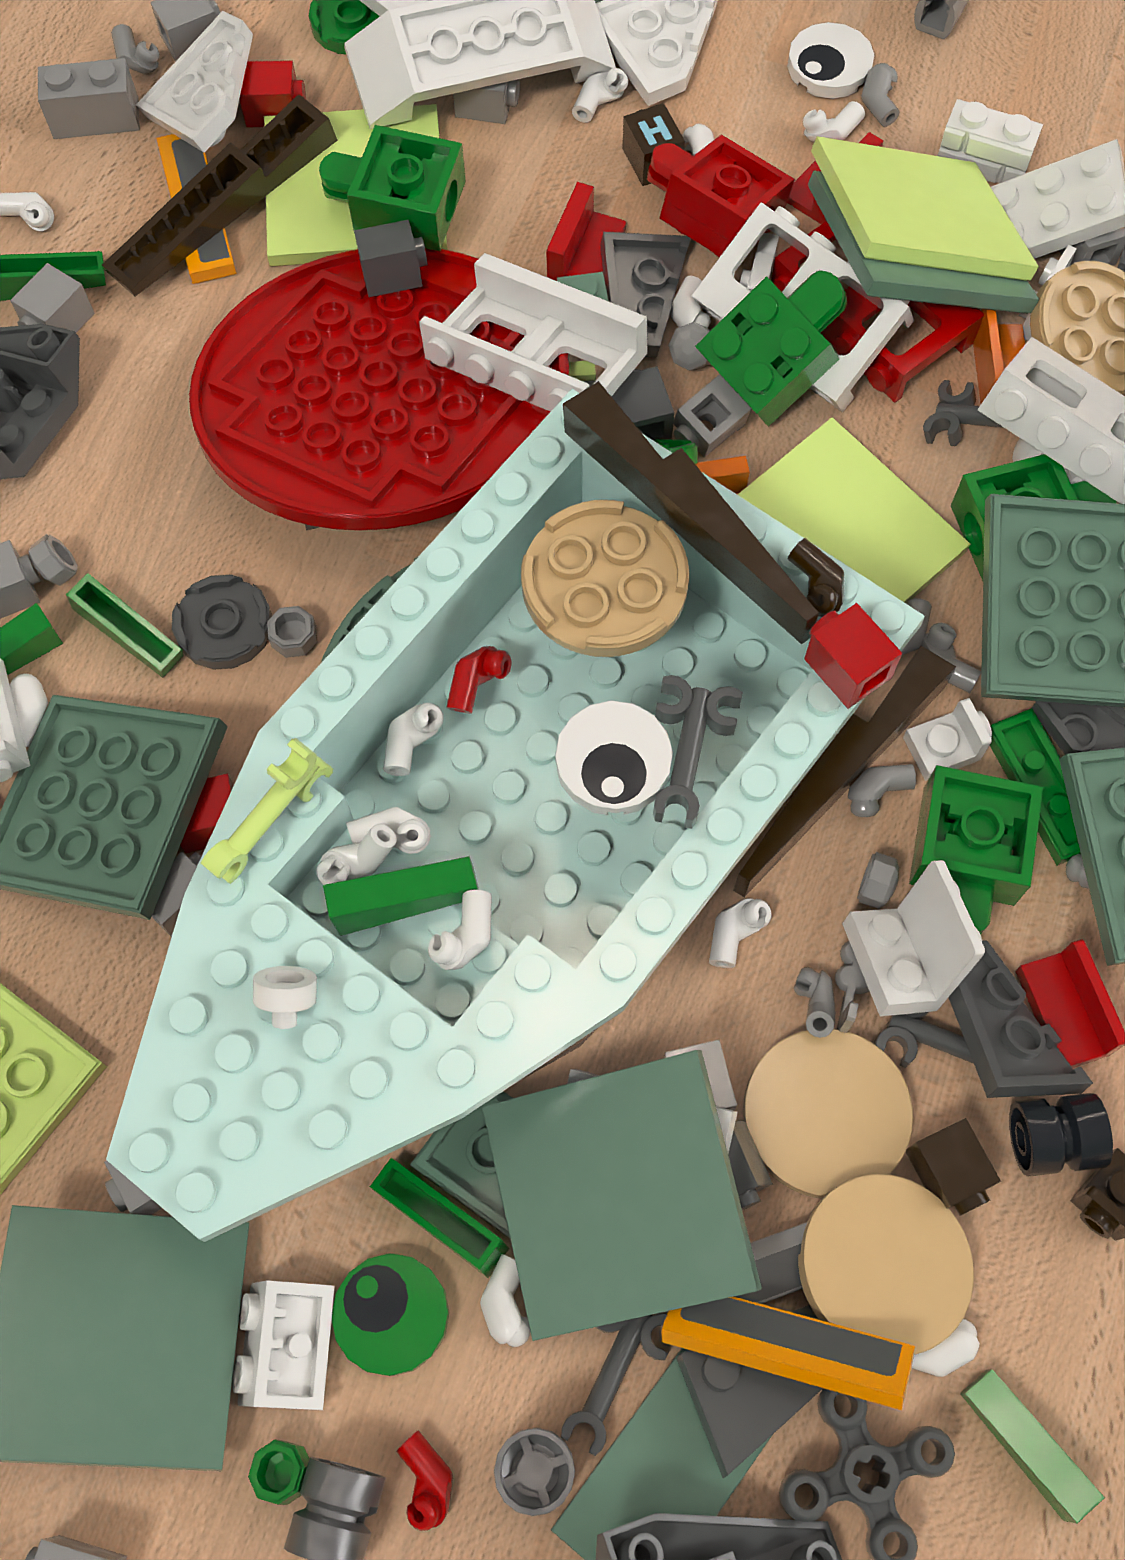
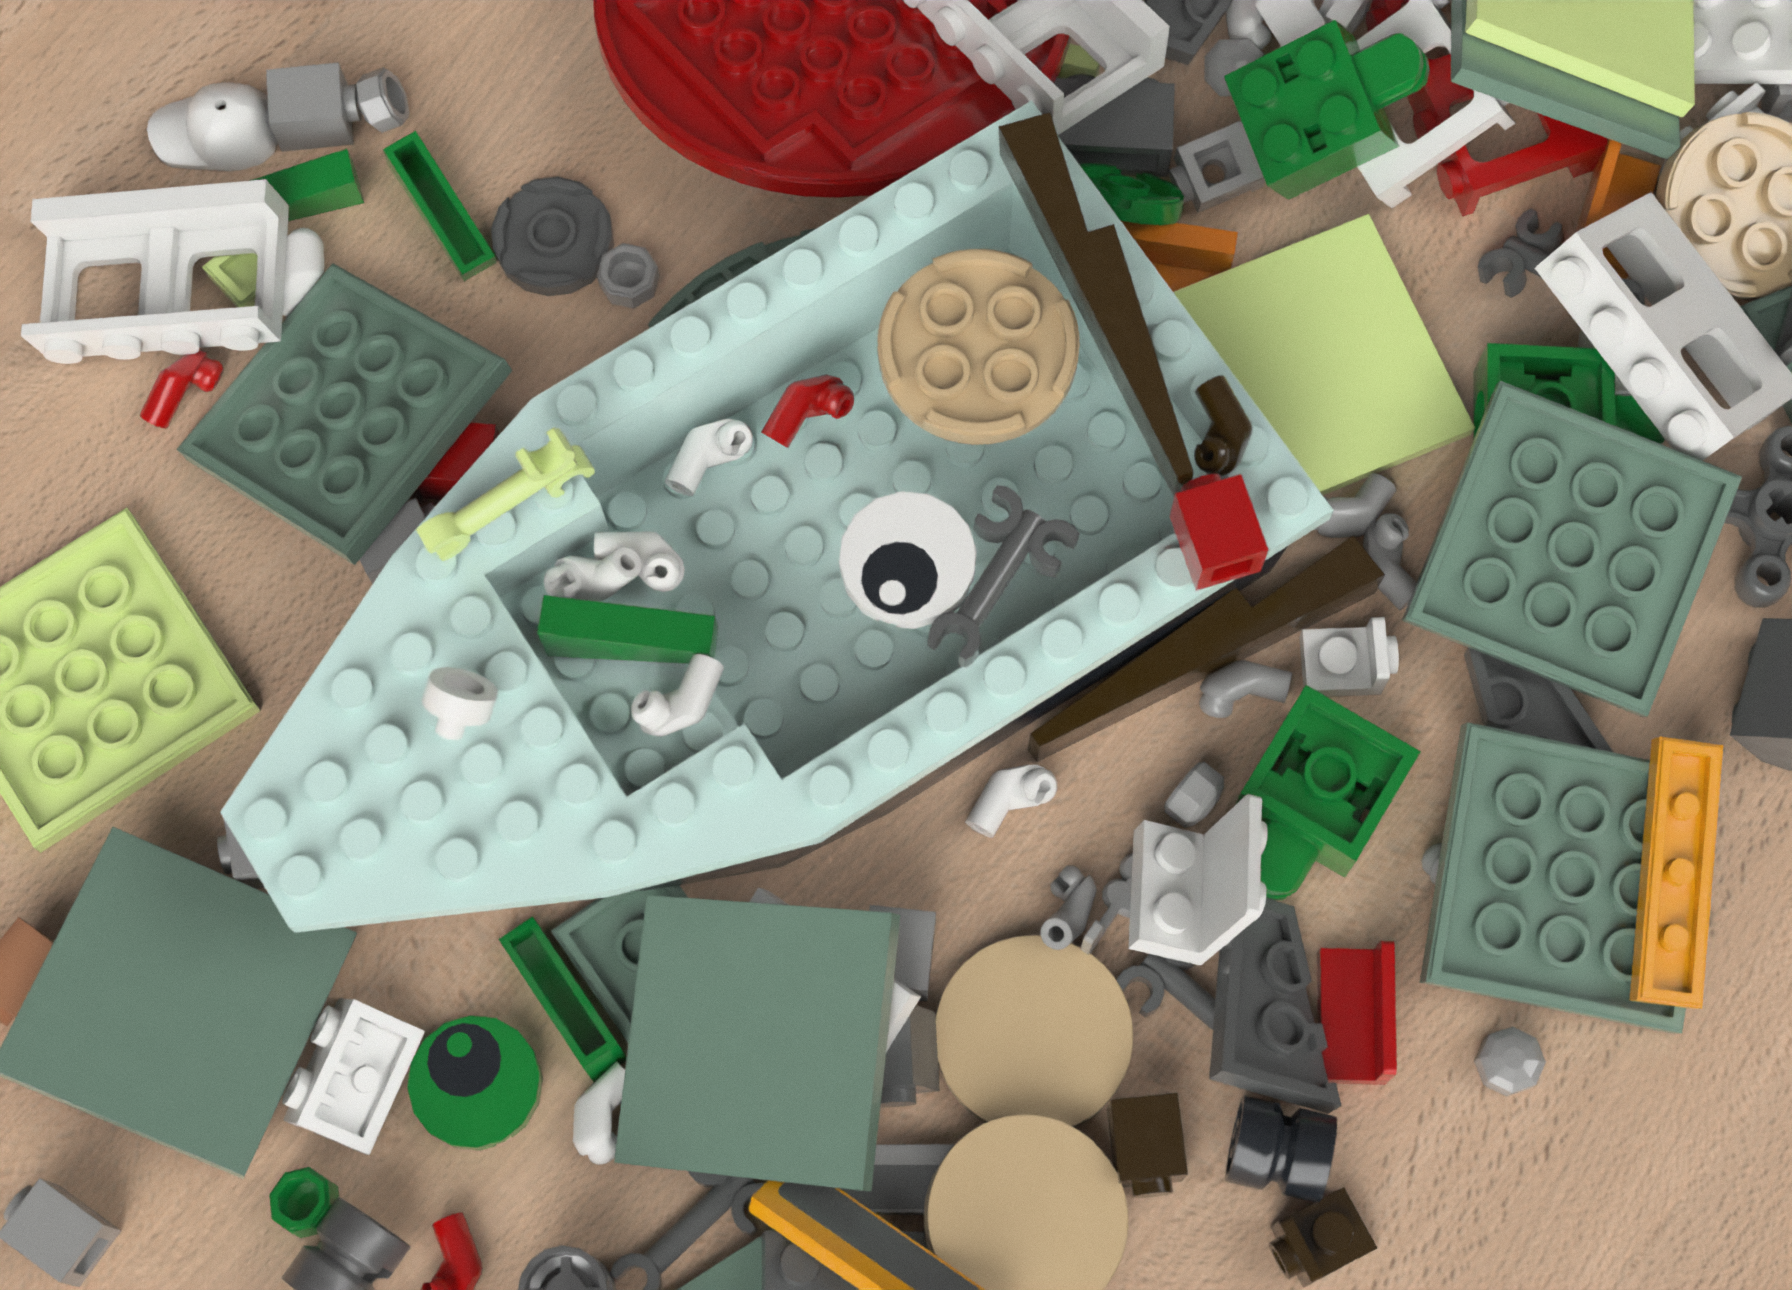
camera: 20 degrees right, 5 degrees up
(1031, 758) = (1433, 710): green tile -> none

